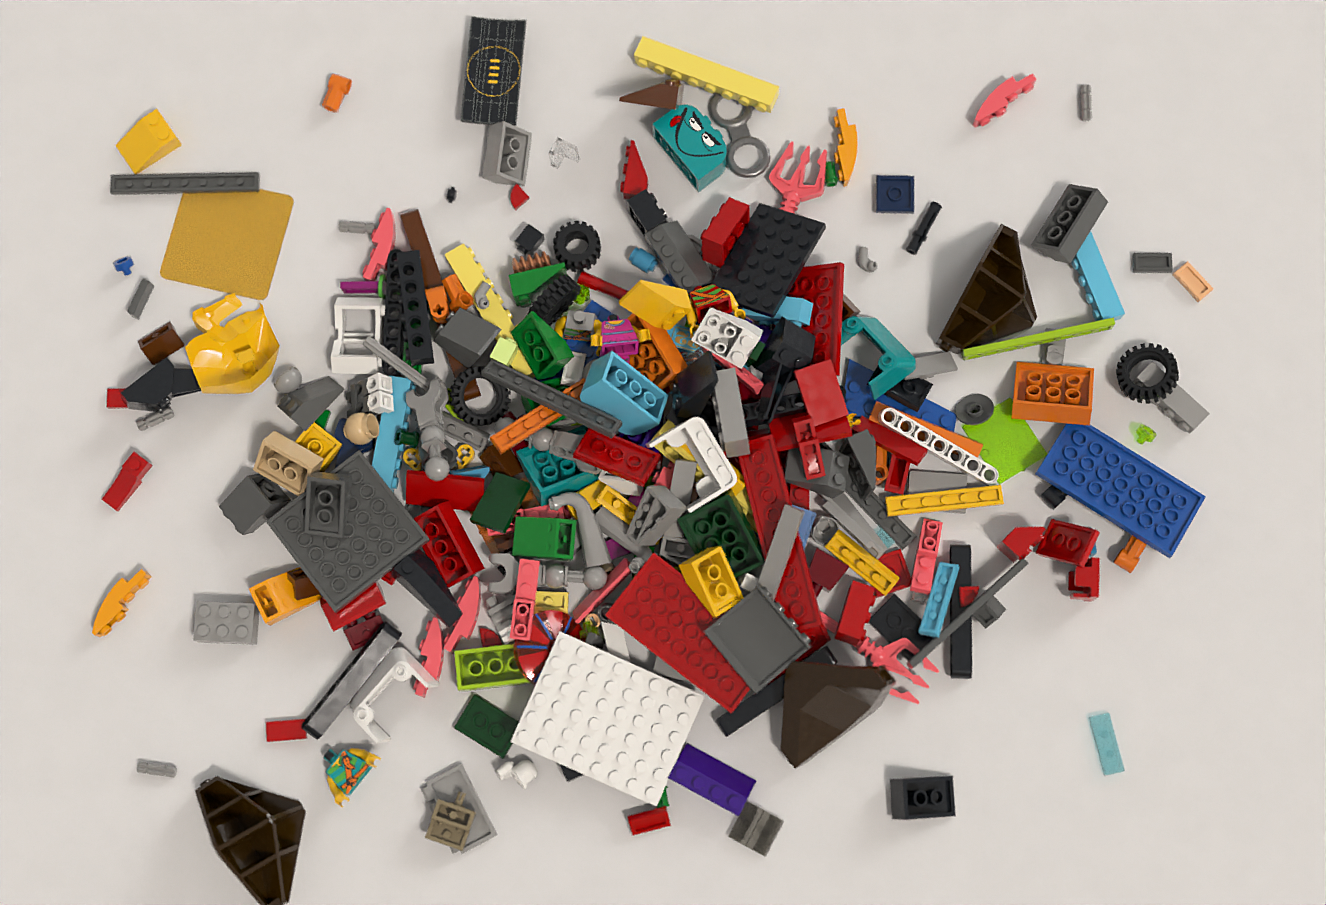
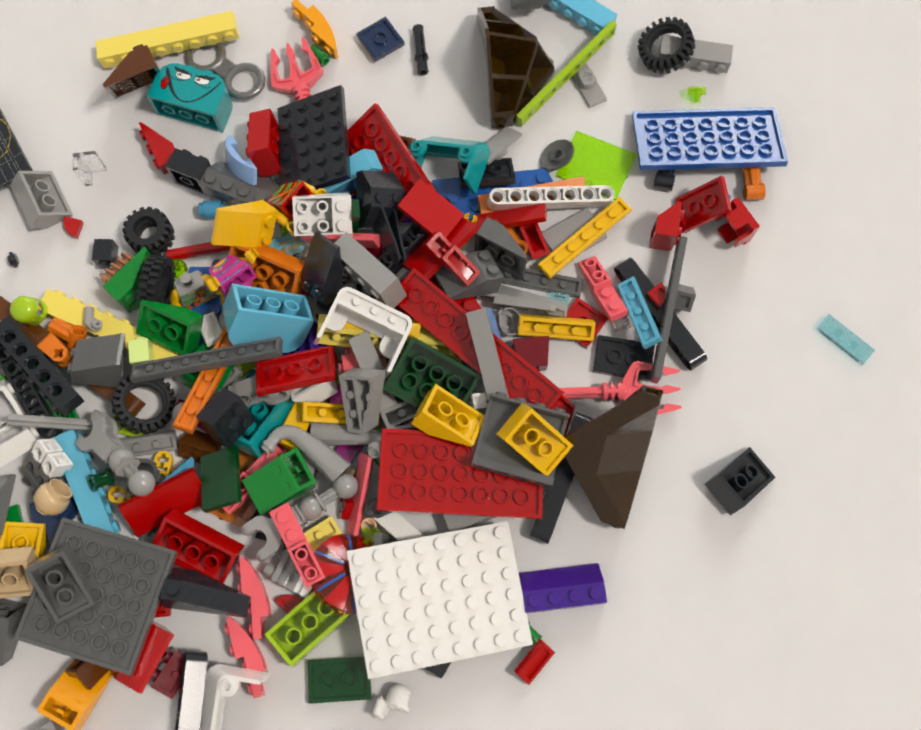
camera: 40 degrees left, 5 degrees down
(435, 253) = (25, 310): none -> lime helmet
(535, 458) = (226, 418): none -> black brick
(584, 595) = (347, 505): none -> red tile
(690, 247) = (242, 169): none -> light blue slope
(756, 829) = (627, 604): clear smoke slope -> none
(767, 647) = (534, 439): none -> yellow slope
(855, 613) = (580, 370): red brick -> none
(864, 262) = (398, 102): light grey arm -> none
(1053, 393) = (608, 104): orange slope -> none

